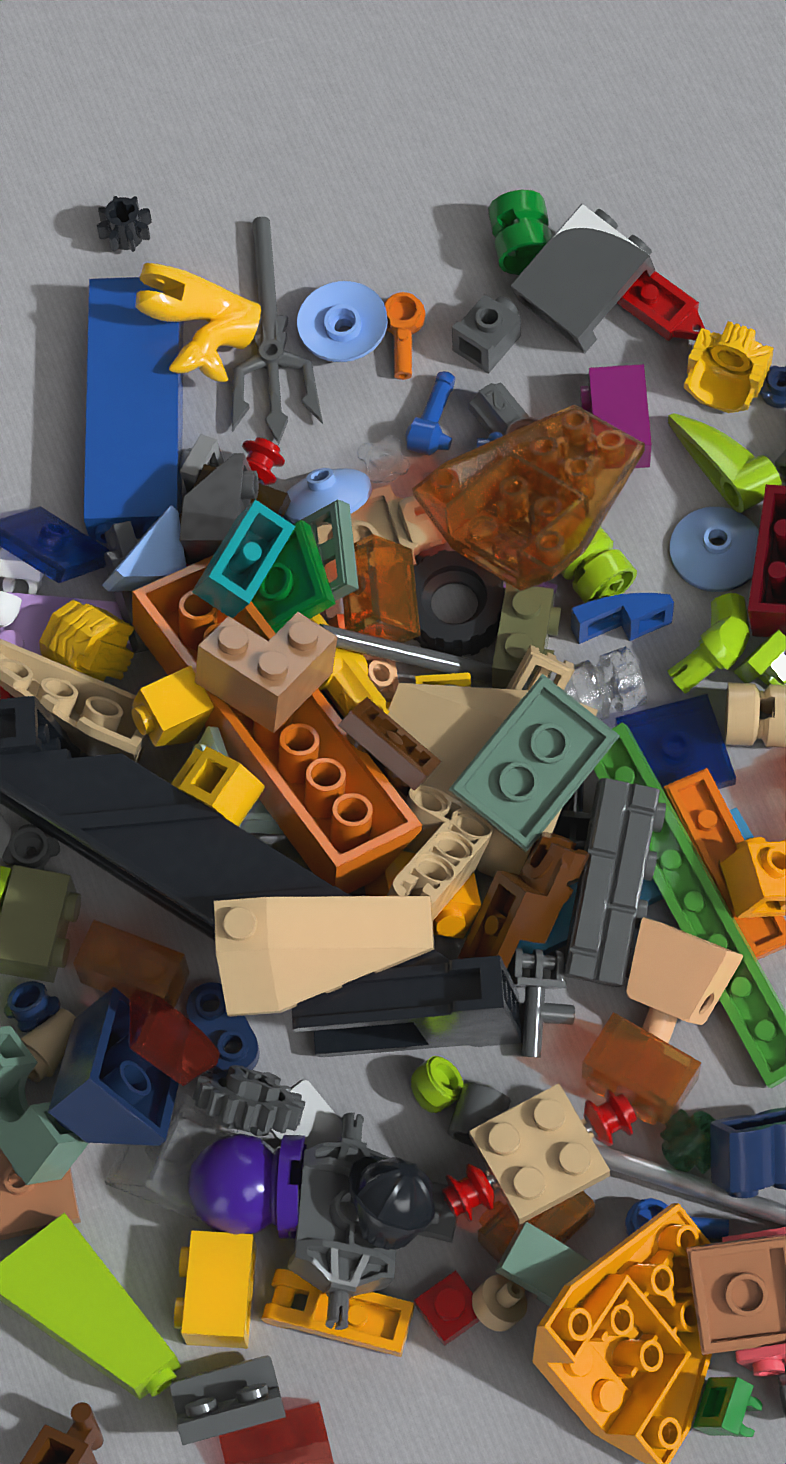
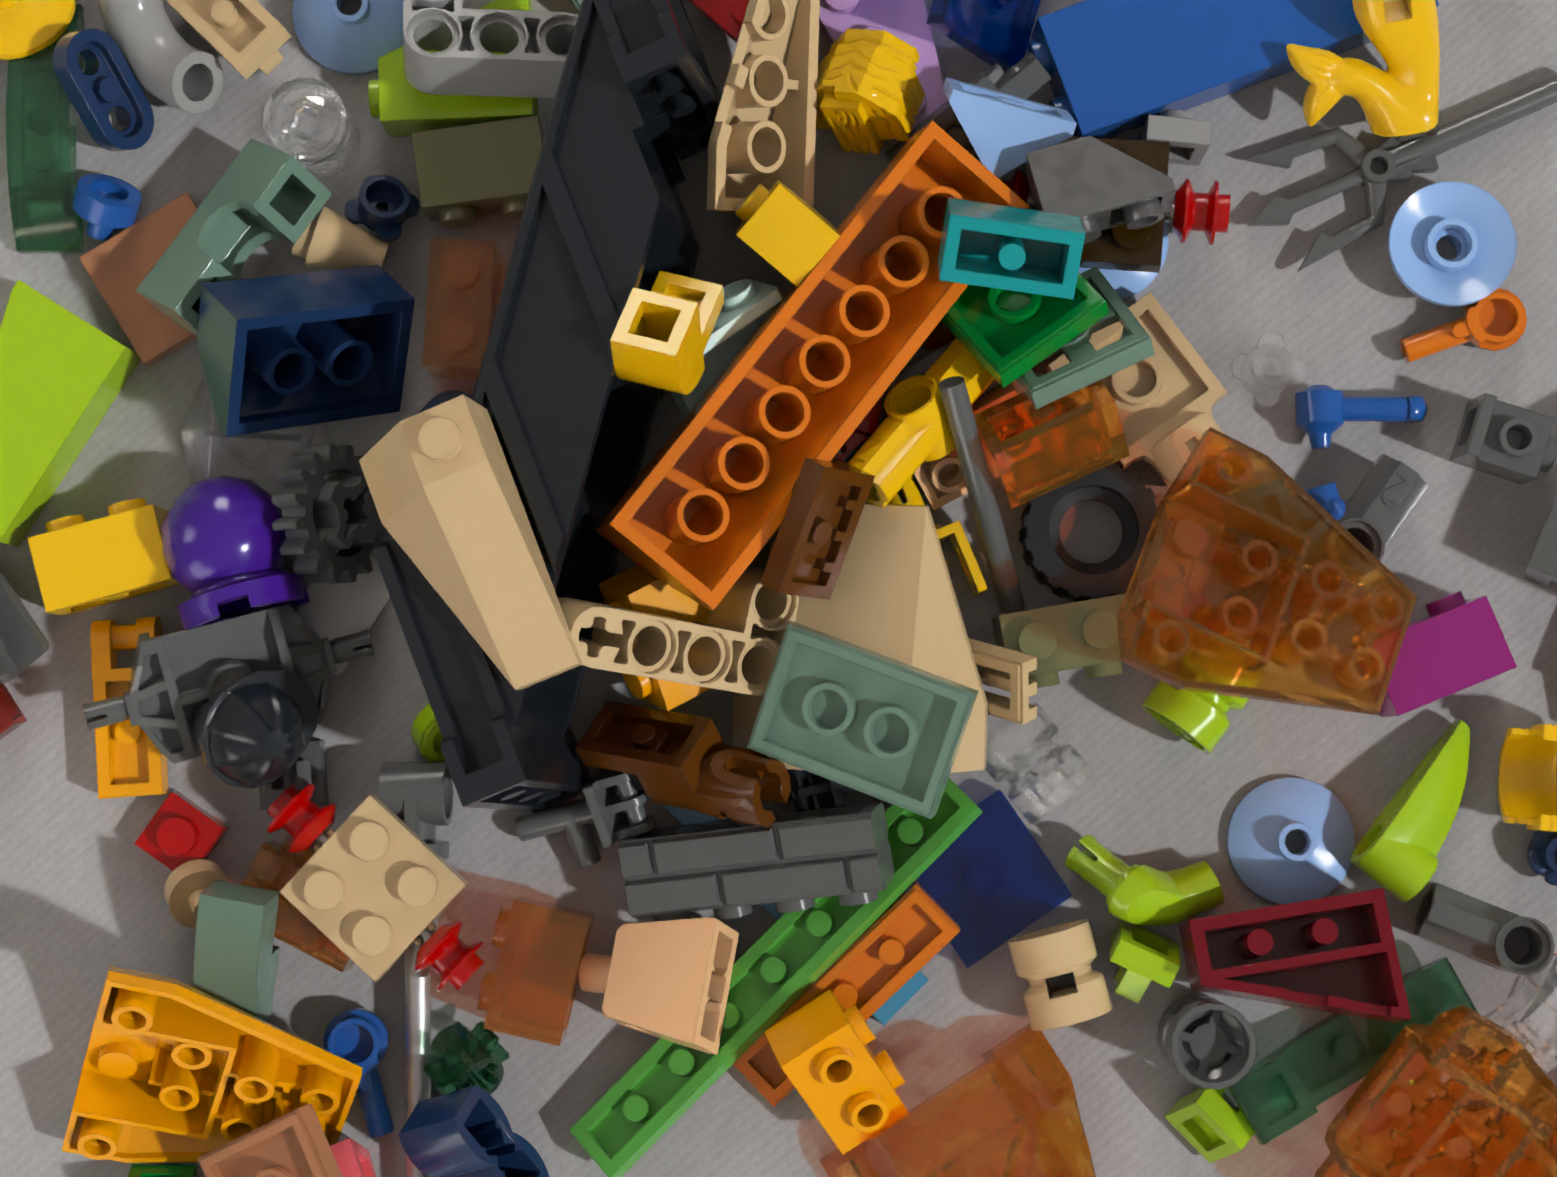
camera: 65 degrees right, 20 degrees up
(169, 1039) = (368, 386): clear red slope -> none
(266, 676) = (843, 336): medium nougat brick -> none
(325, 487) = (1186, 316): light blue dish -> none
(633, 611) = (1152, 767): blue slope -> none

